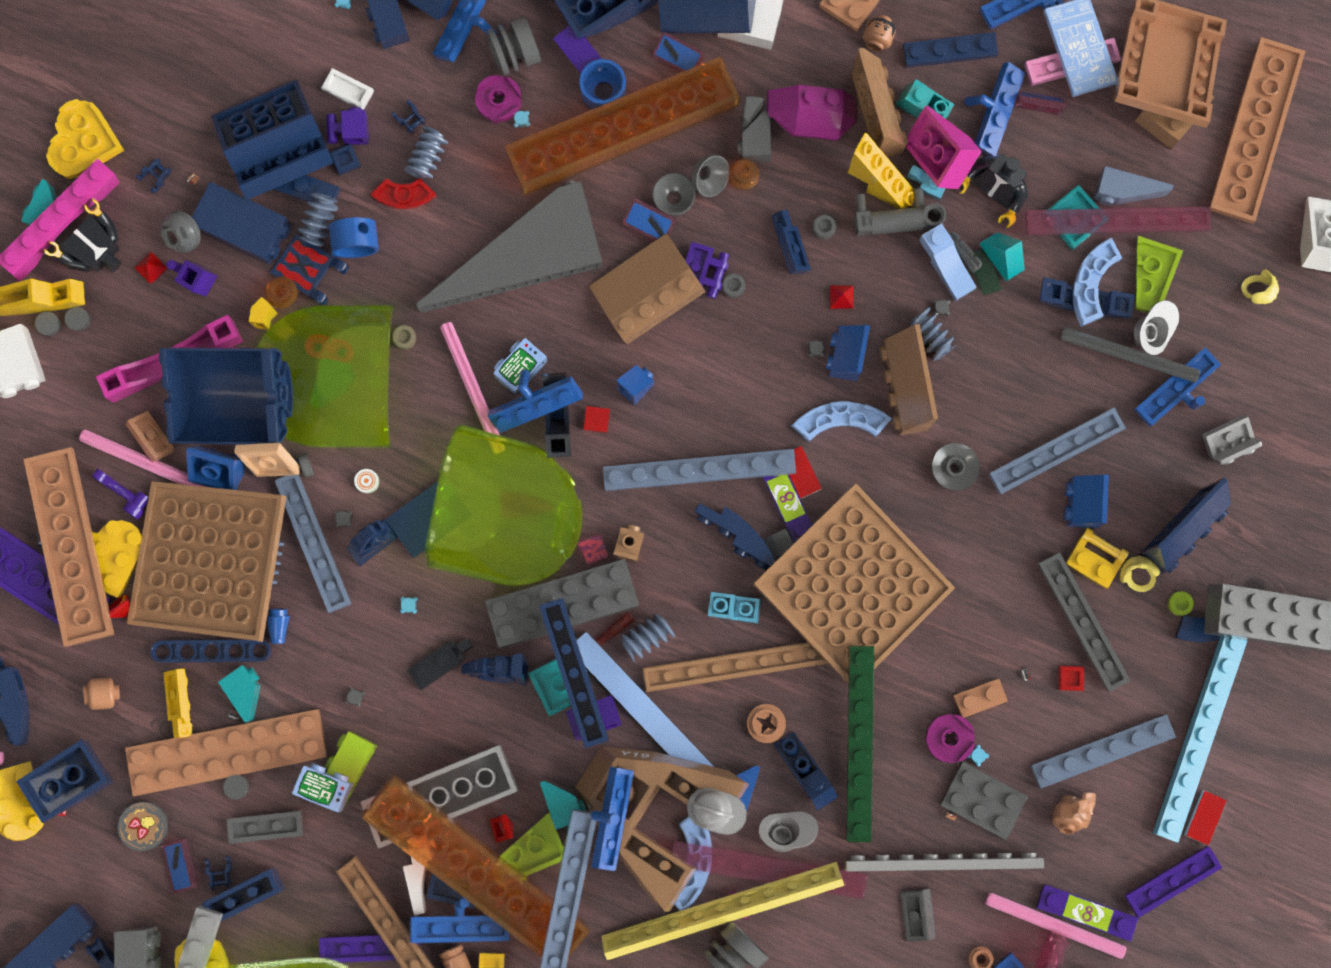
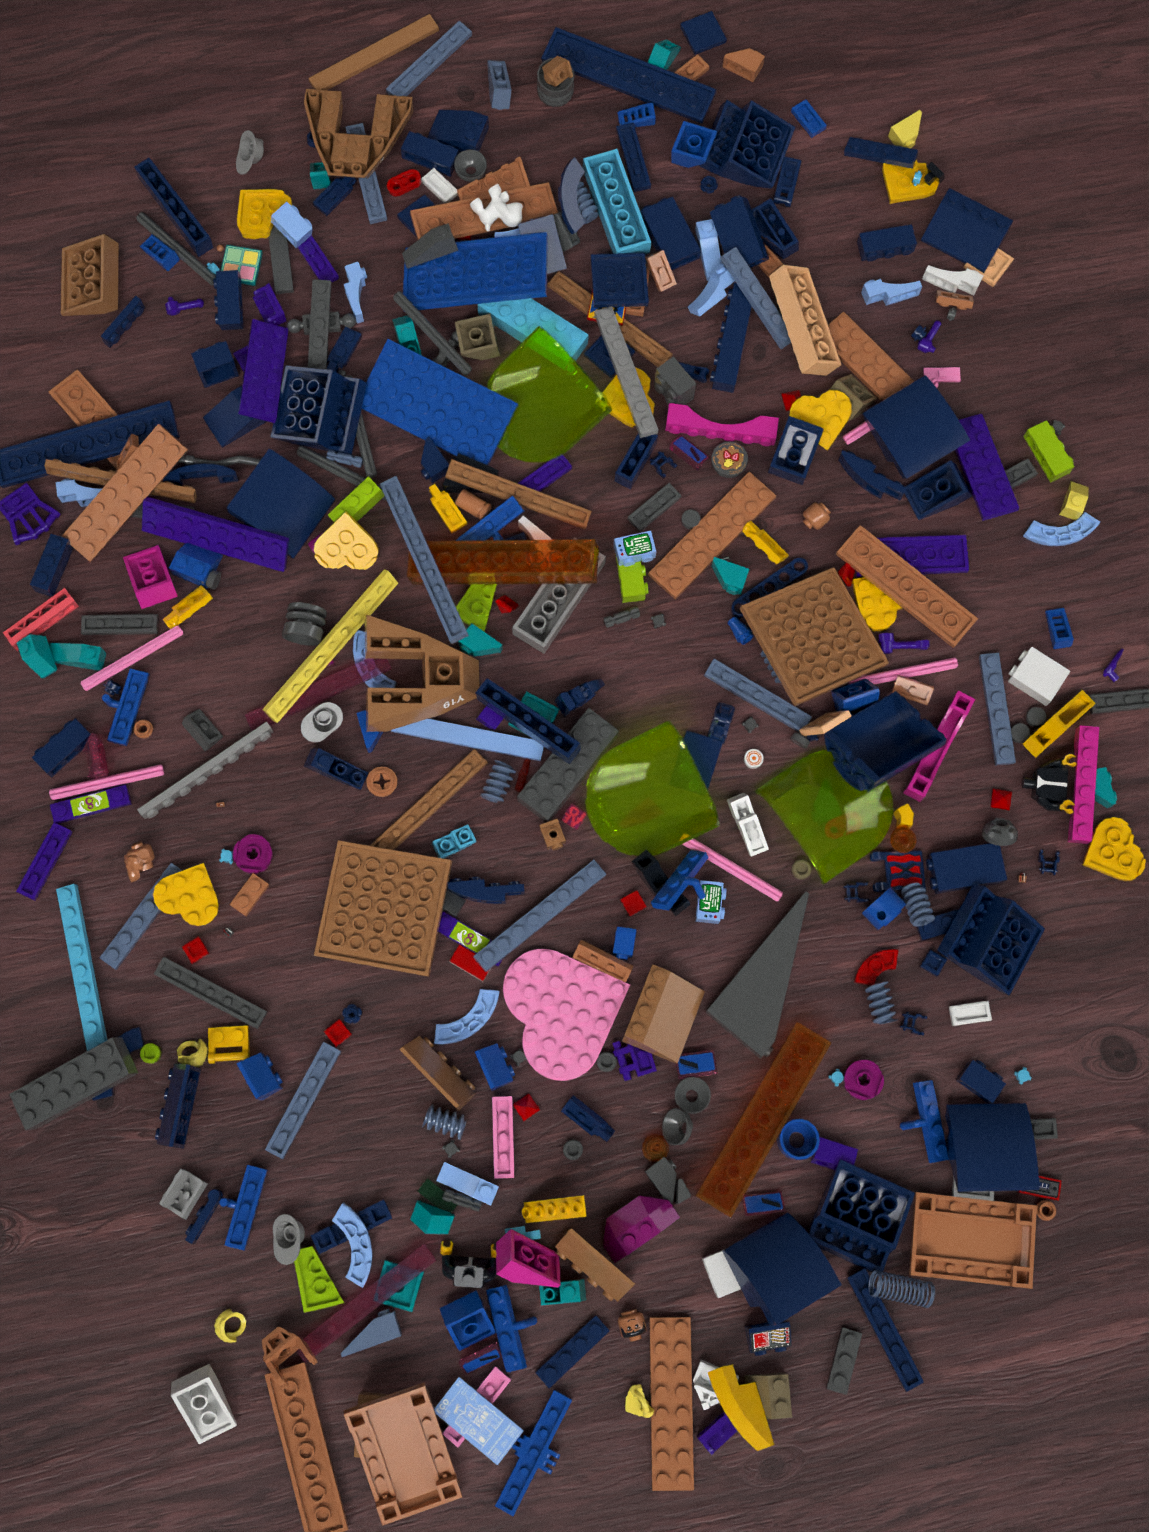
camera: 145 degrees right, 5 degrees down
(23, 849) = (789, 398): none -> red slope
(79, 359) = (997, 709): none -> sand blue plate
(156, 905) = (684, 420): none -> dark pink arch
(193, 276) = (966, 809): dark purple brick -> none
(353, 127) = (945, 987): dark purple brick -> none
(363, 282) = (848, 887): none -> dark blue piece
(390, 728) = (621, 617): none -> dark grey axle
(408, 605) = (667, 699): medium azure piece -> none
(423, 418) = (748, 824): none -> white slope
(439, 663) = (620, 677): black hinge -> none
(513, 45) = (882, 1118): dark grey wheel -> none
(612, 818) = (439, 647): blue plate -> none
(669, 381) = (602, 961): none -> nougat plate
(716, 811) = (375, 695): light grey piece -> none
(740, 364) = (564, 1011): none -> bright pink plate
(860, 743) = (311, 809): dark green plate -> none
(884, 282) = (503, 1137): none -> bright pink plate
(897, 220) = (525, 1189): dark grey piece -> none
(951, 509) = (352, 1019): none -> dark blue plate
(967, 465) = (359, 1032): dark grey dish -> none
(980, 495) = (337, 1033): none -> red tile
(983, 800) = (204, 829): dark grey plate -> none
(1032, 141) = (467, 1320): none -> blue slope
(1043, 739) = (189, 895): none -> yellow plate
(1129, 354) = (294, 1206): dark grey axle -> none
(1205, 817) = (46, 918): red tile -> none
(1223, 407) = (204, 1215): none -> dark blue plate
(1225, 235) = (275, 1355): none -> nougat piece

